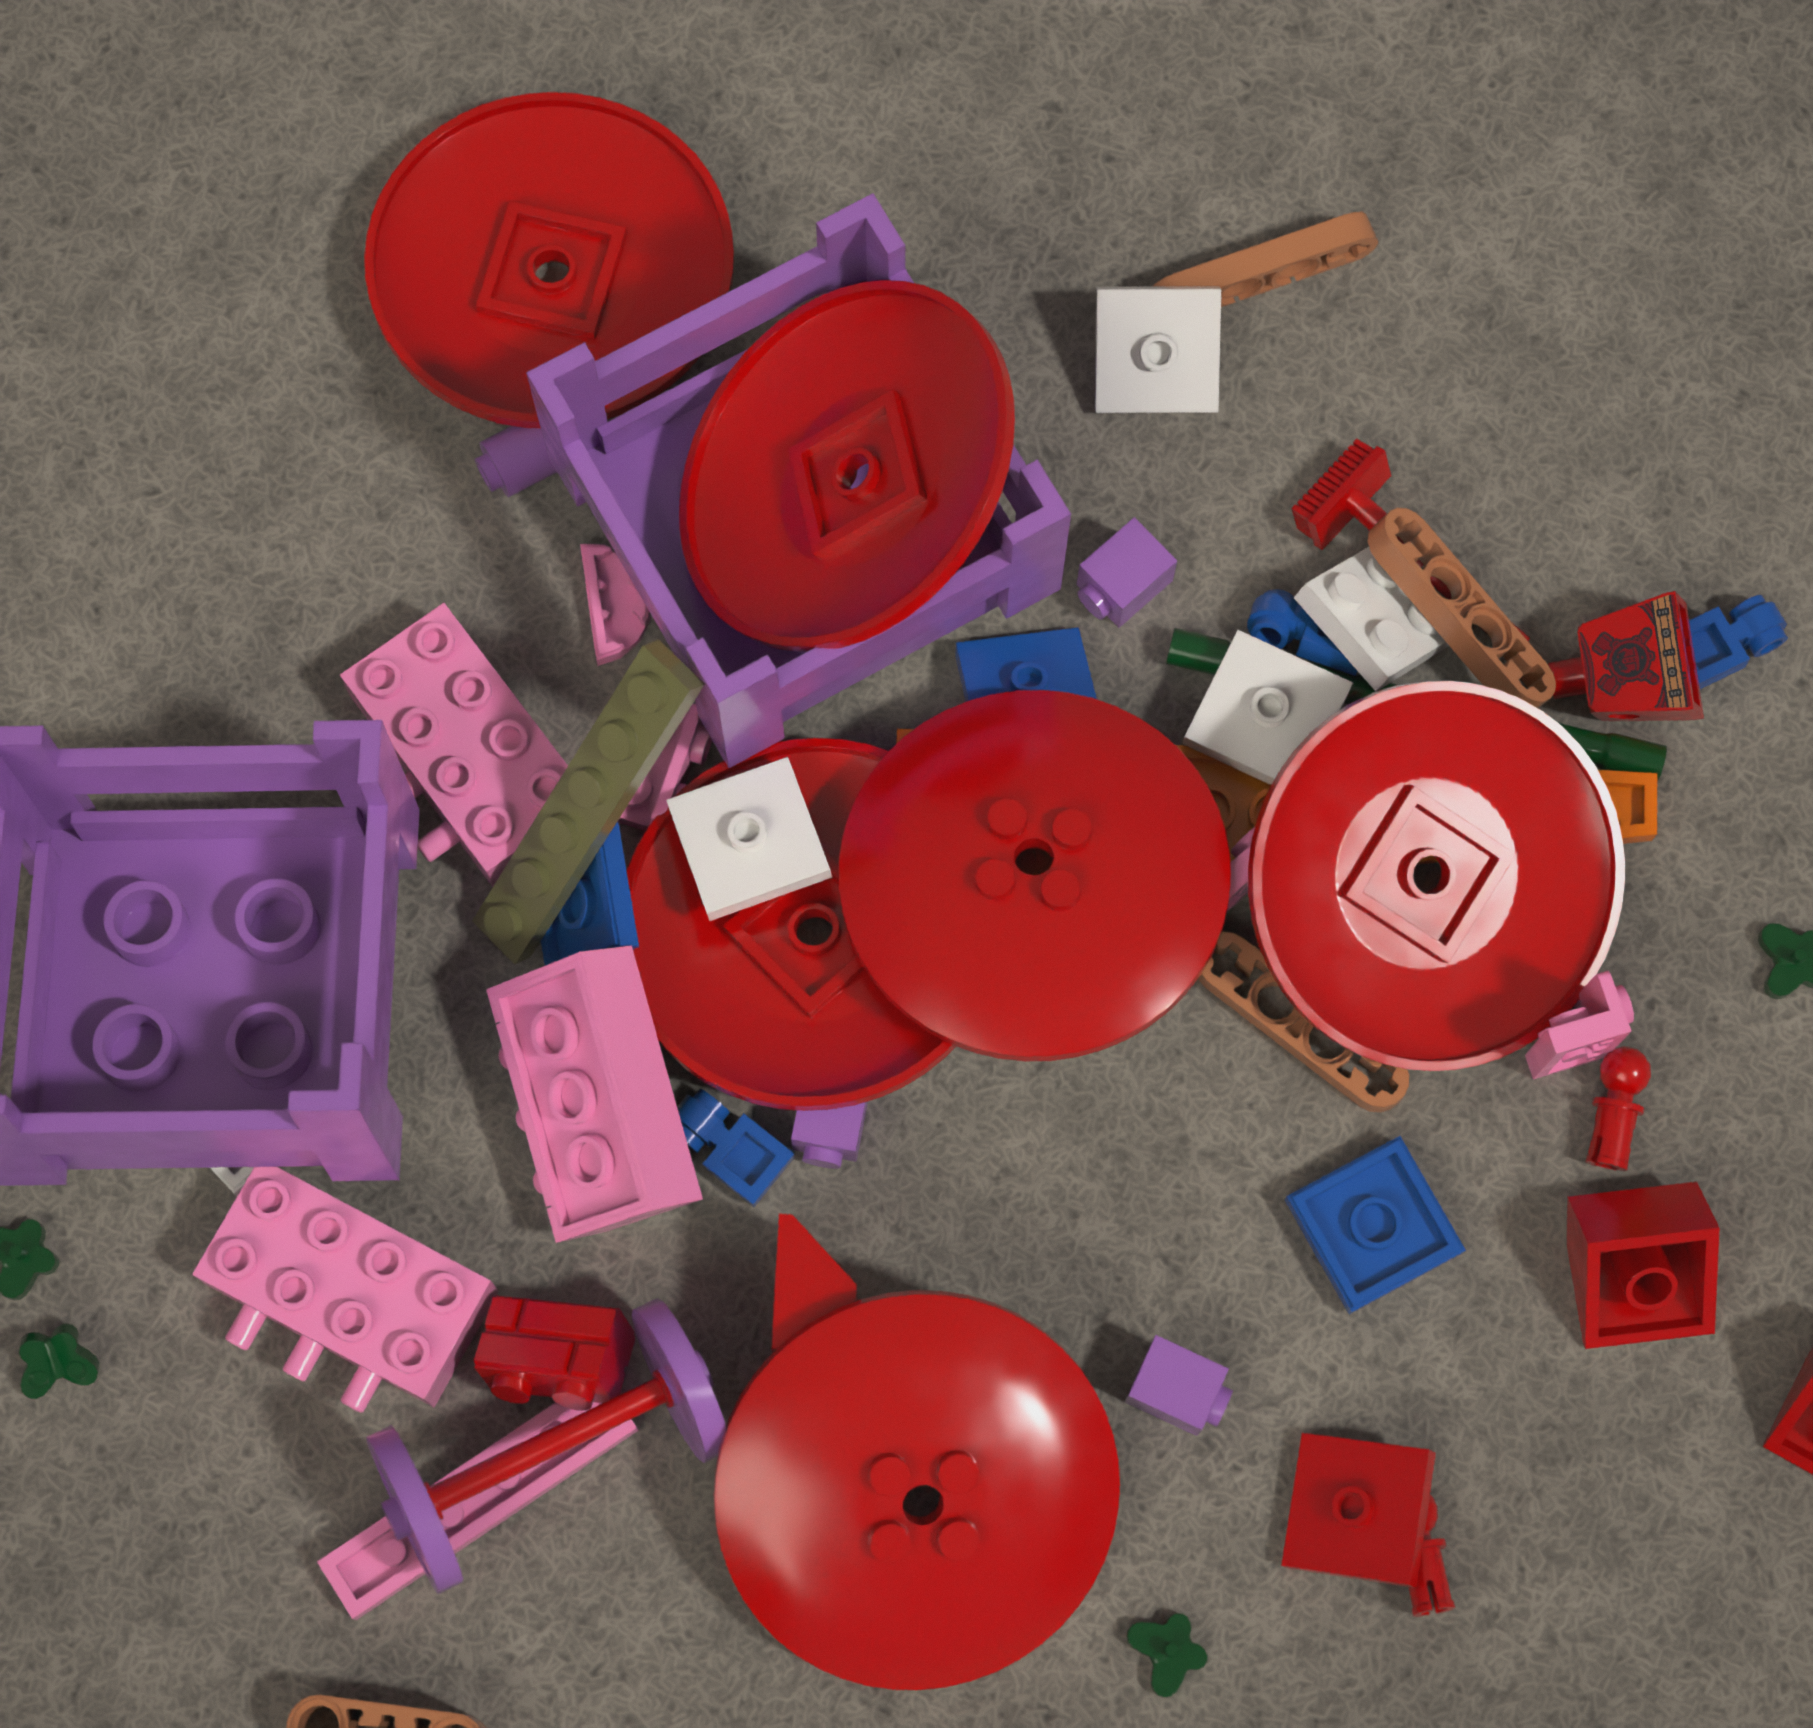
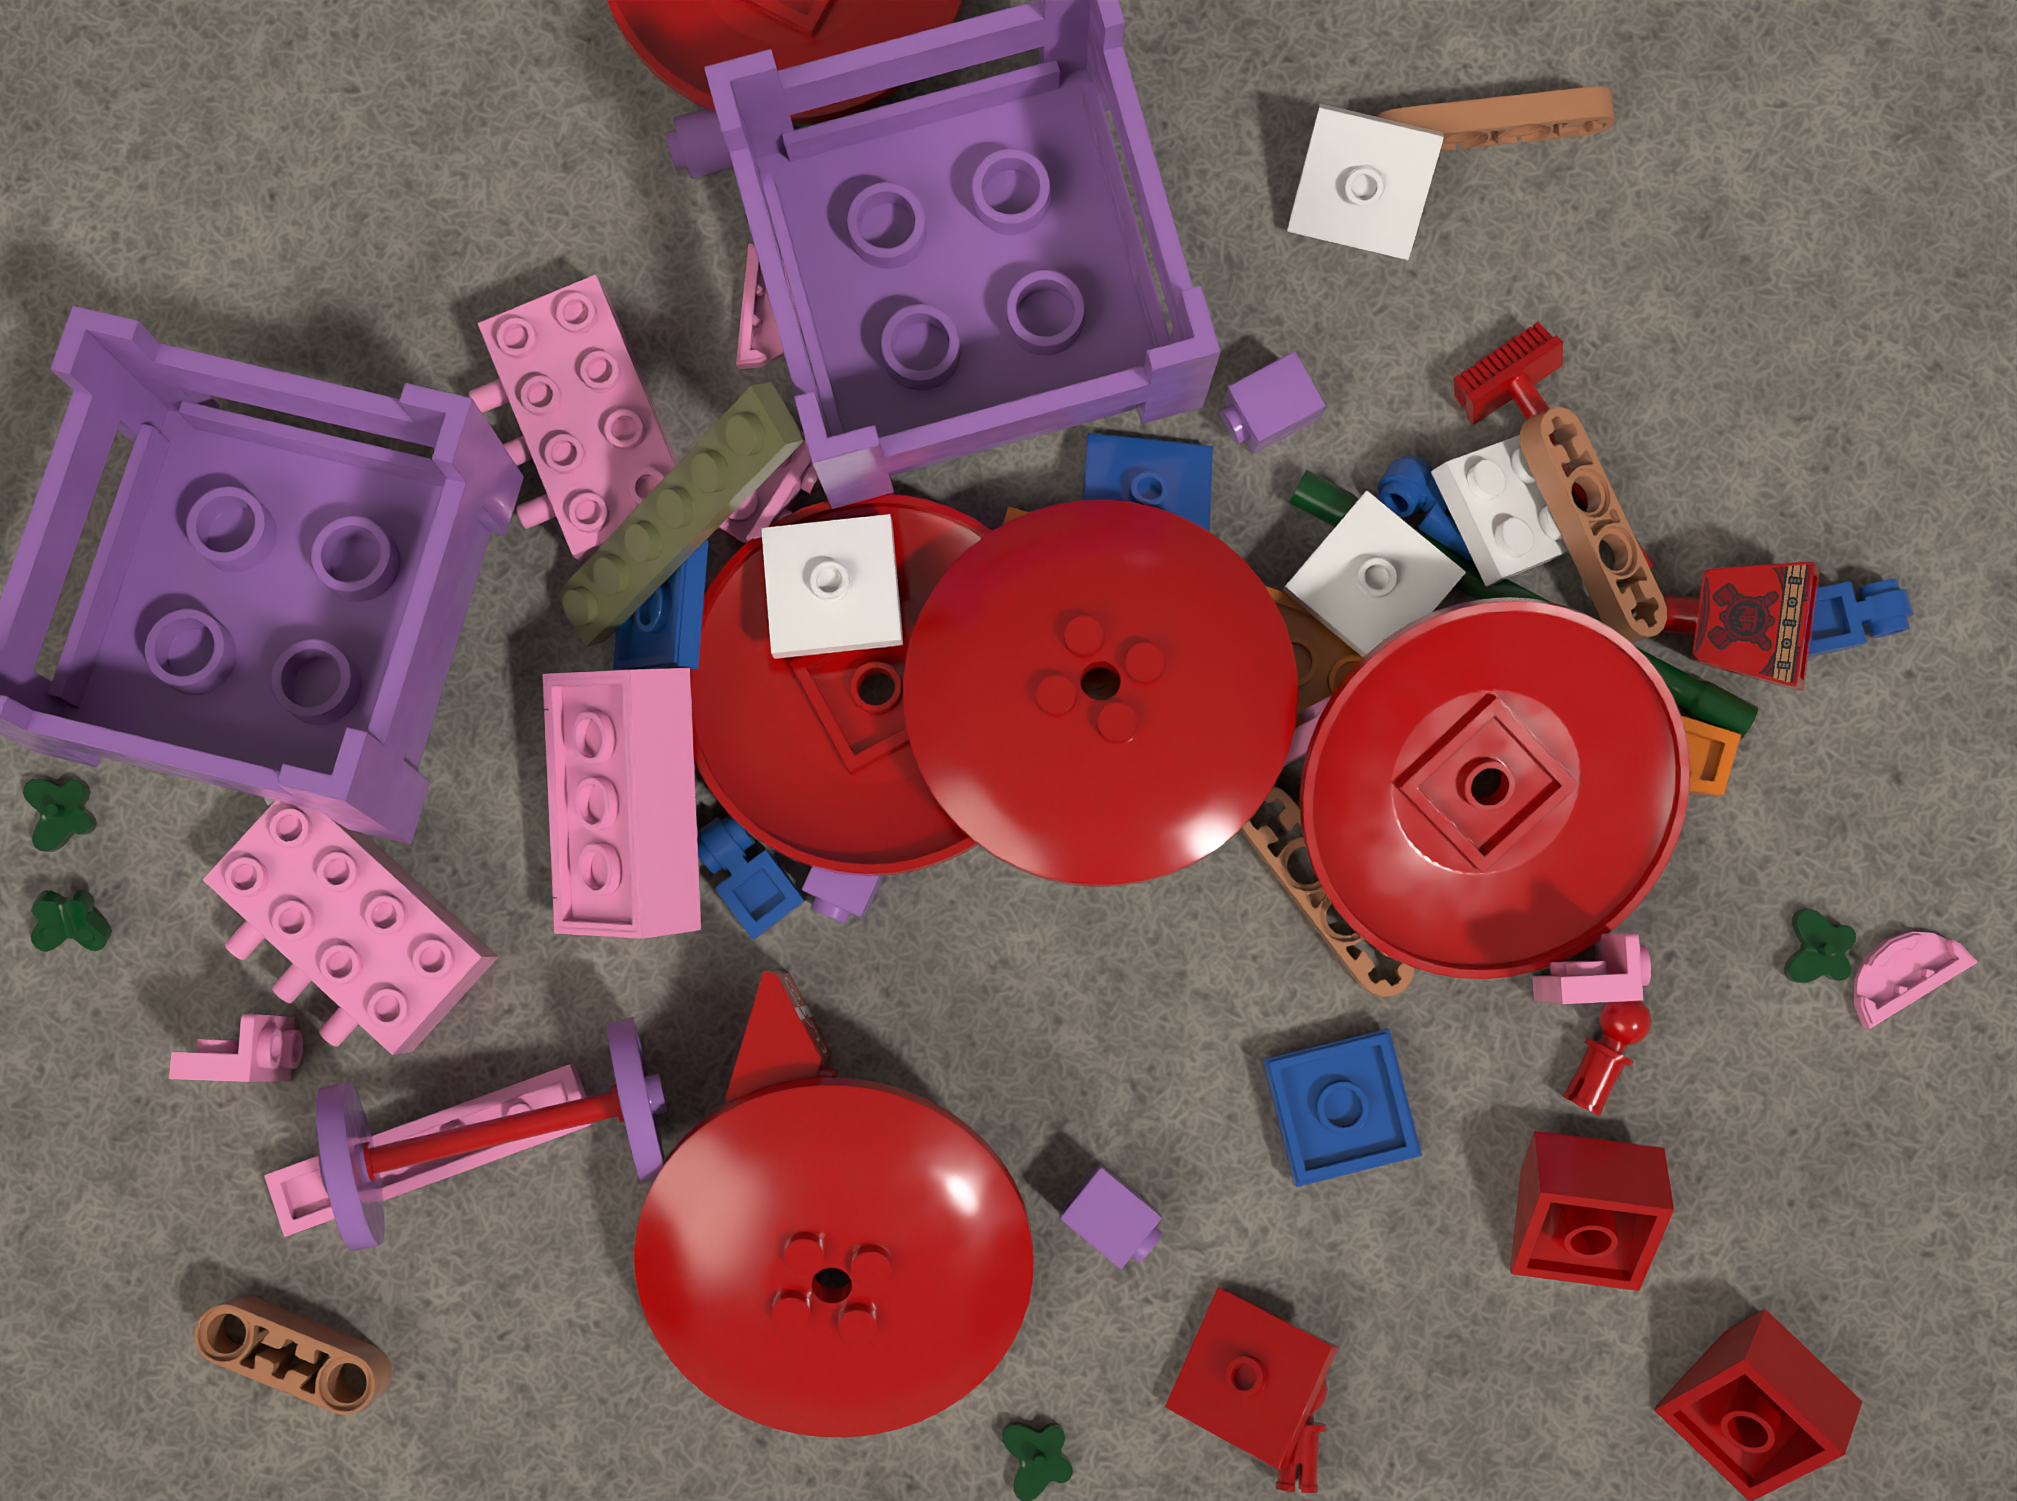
camera: 20 degrees right, 10 degrees up
(263, 1452) = (264, 1053): none -> bright pink bracket
(554, 1351) = (527, 1036): red brick -> none
(840, 384) = (1016, 154): red dish -> none

